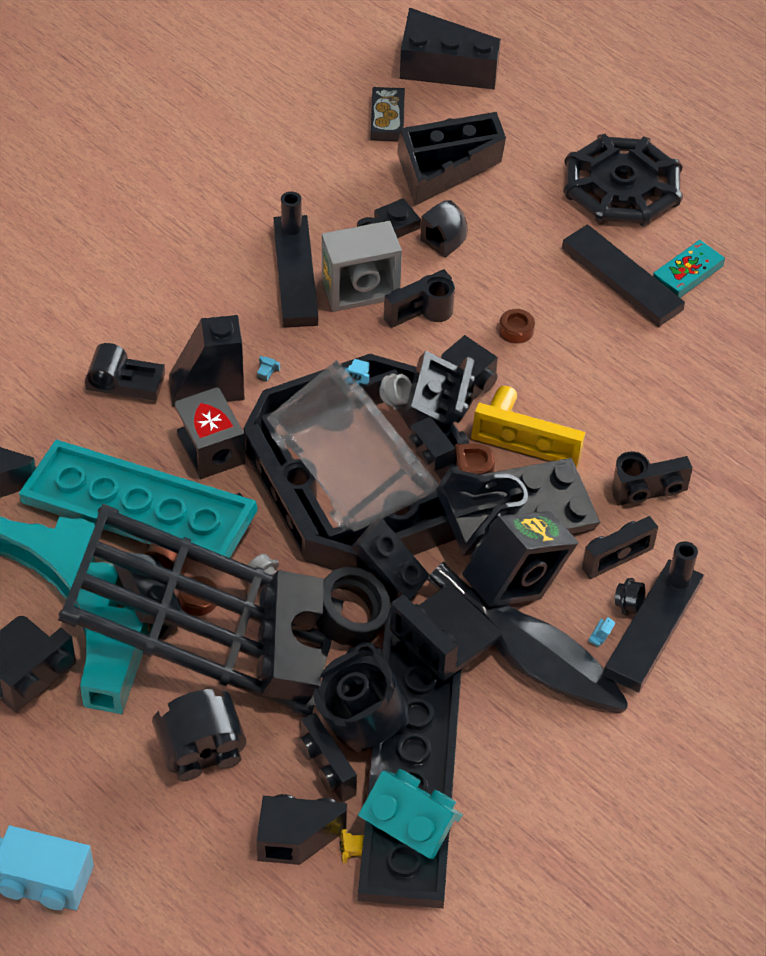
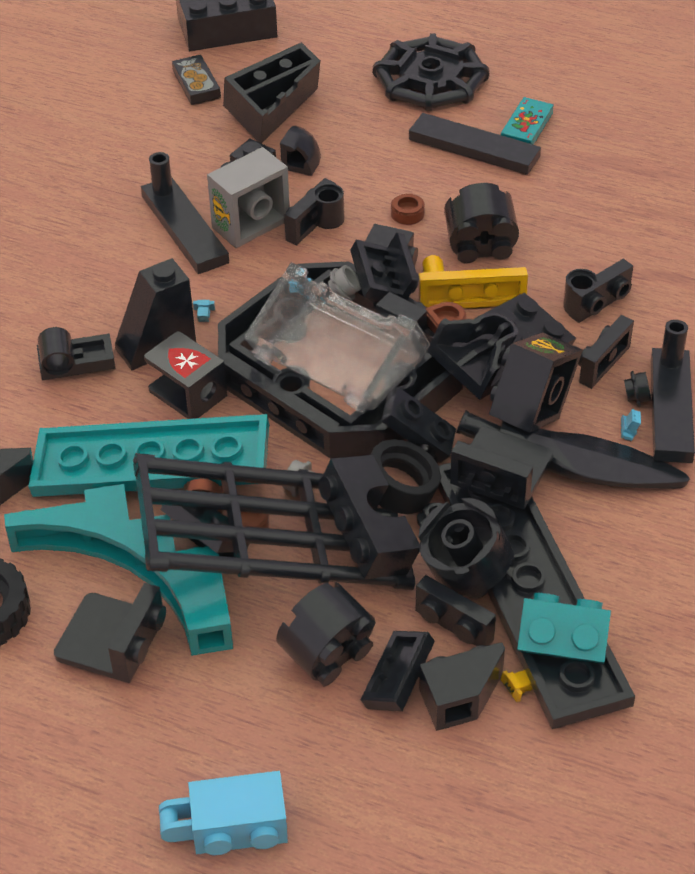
camera: 20 degrees left, 5 degrees down
(246, 791) = (397, 670): none -> black plate
(570, 369) = (481, 223): none -> black brick

